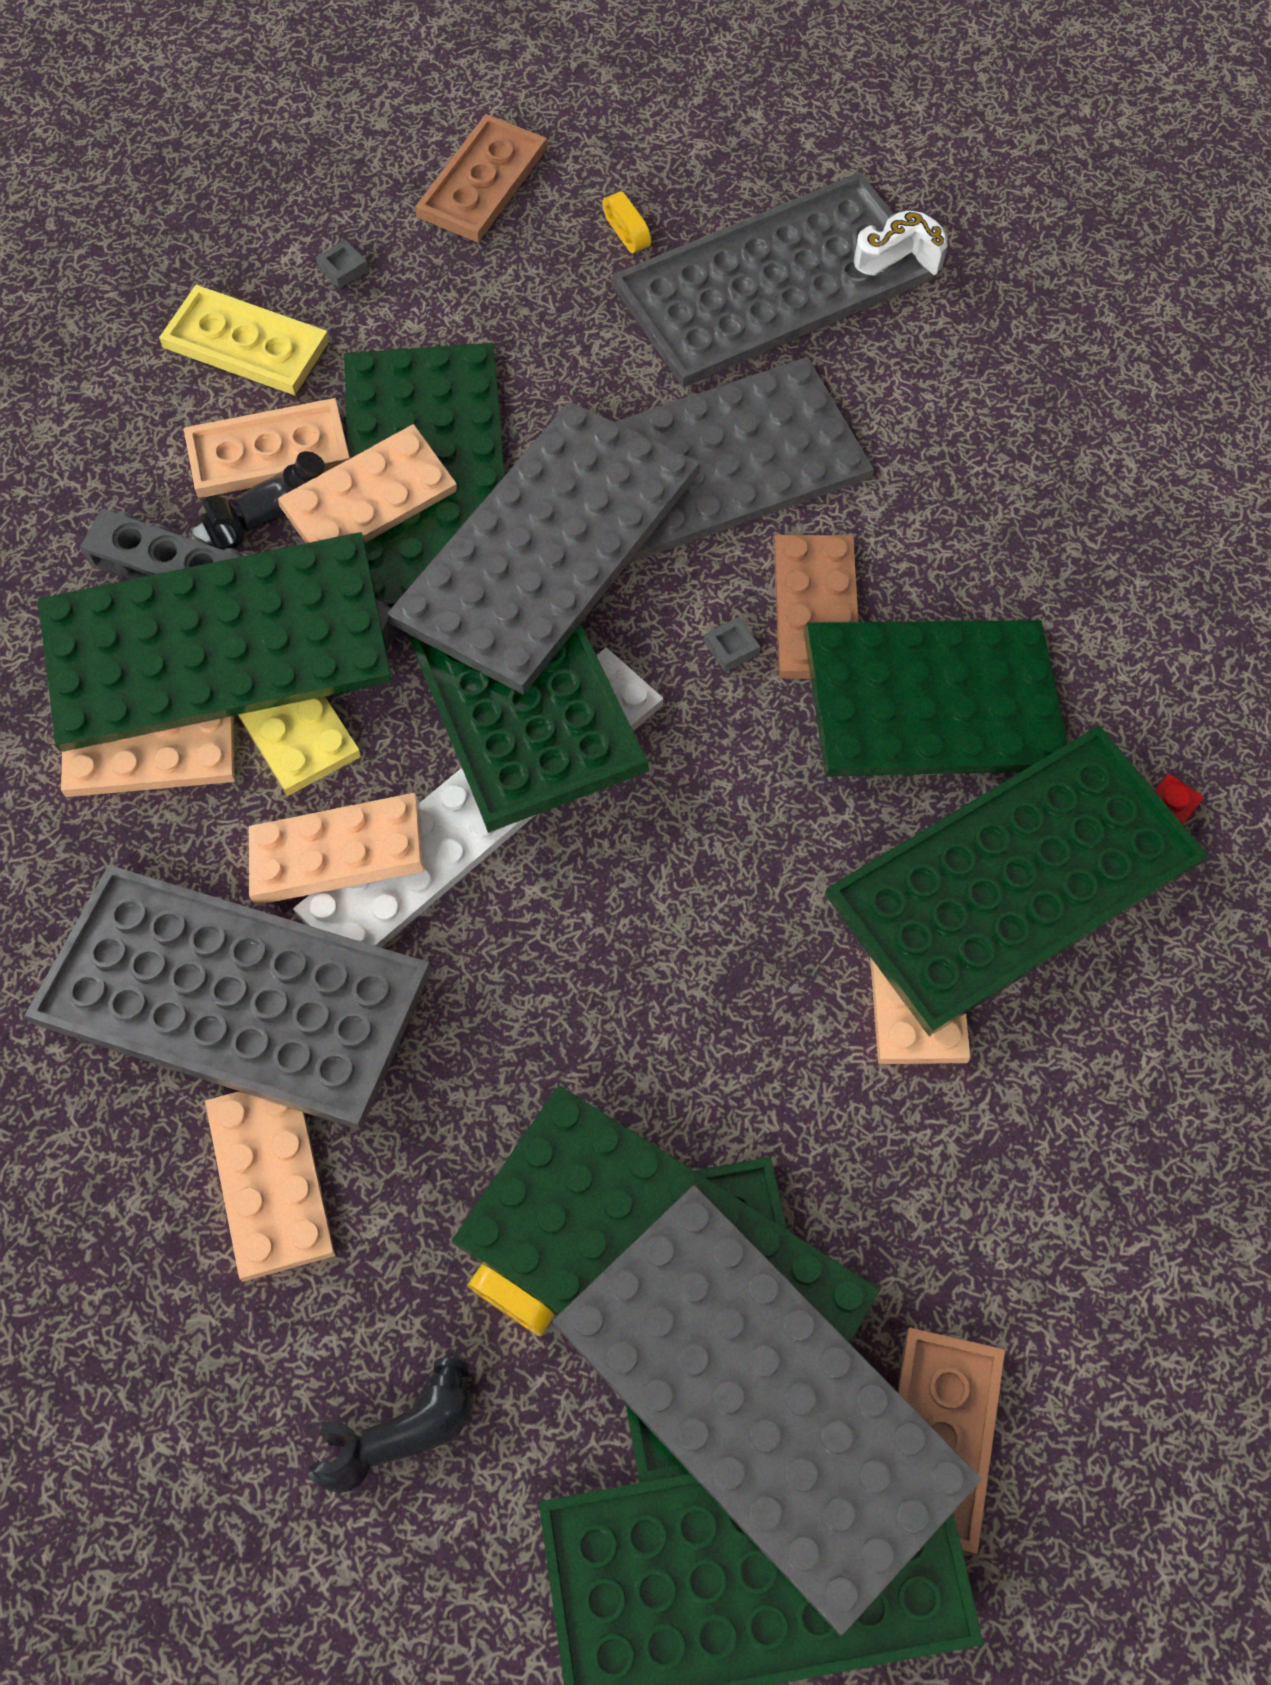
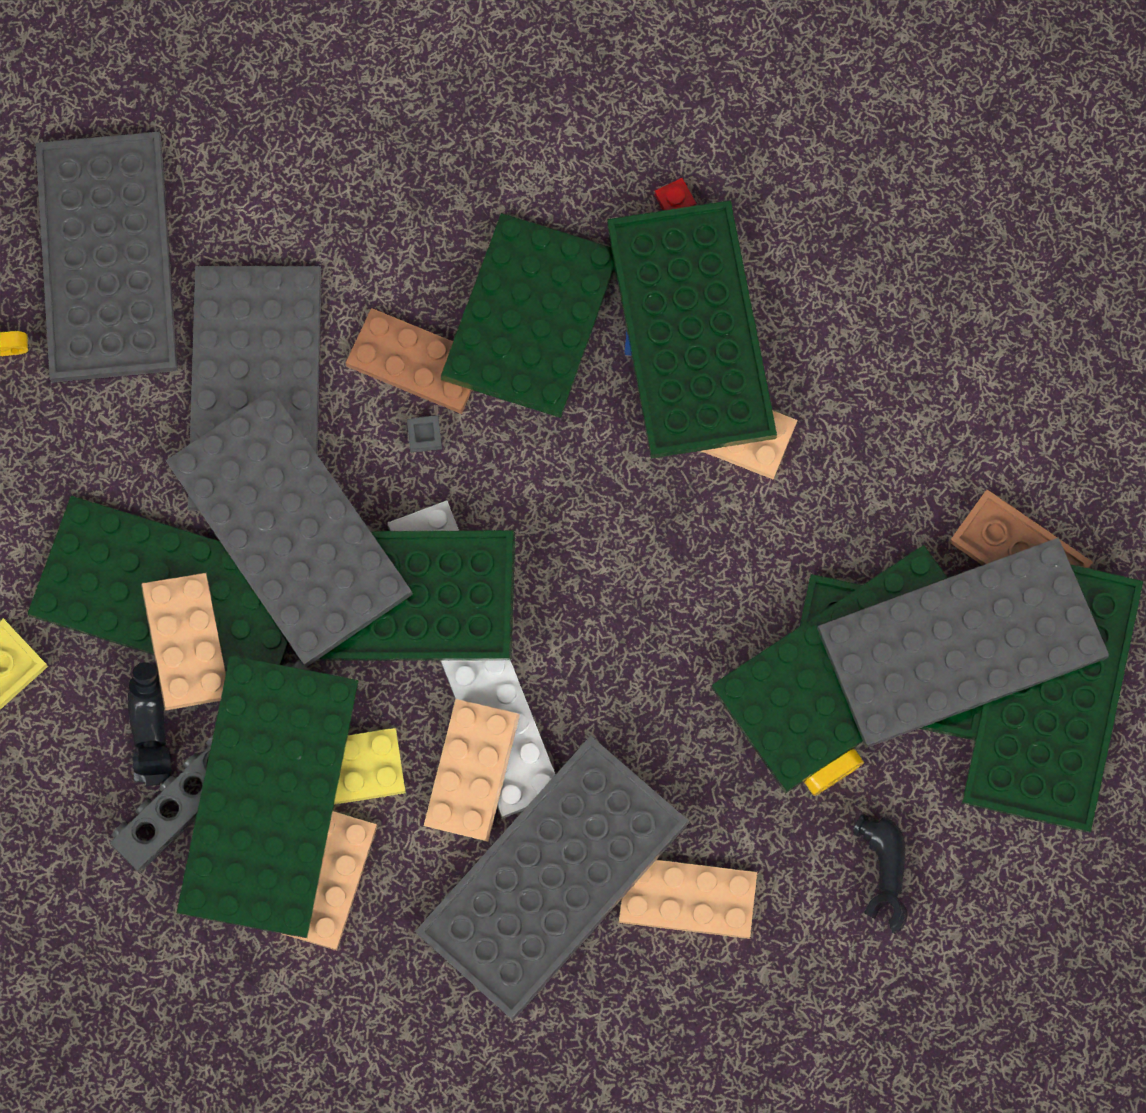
camera: 65 degrees left, 10 degrees up
(257, 446) = (93, 704): light nougat plate -> none
(902, 234) = (124, 140): white animal -> none

